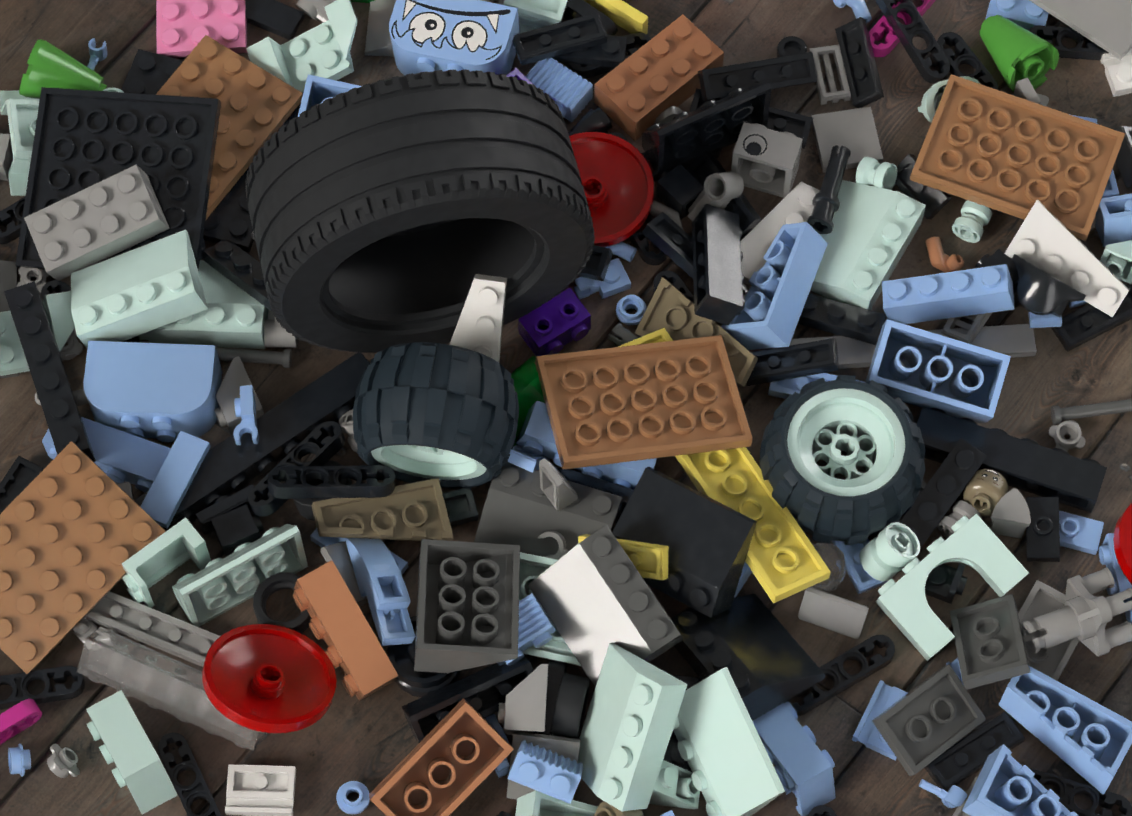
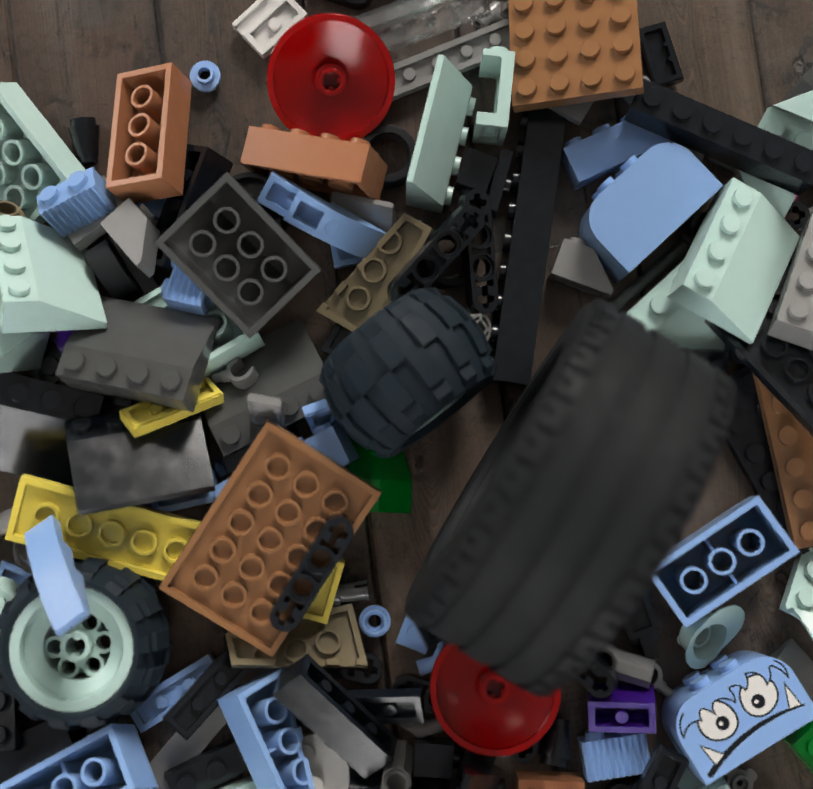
camera: 130 degrees right, 20 degrees up
(175, 478) = (553, 157): light blue tile -> none
(246, 409) = (557, 254): light blue plate -> none
(482, 317) = (447, 468): white wing -> none
(555, 324) = (414, 540): dark purple brick -> none
(637, 356) = (313, 573): none -> black beam
(805, 489) = (55, 576): none -> light blue slope

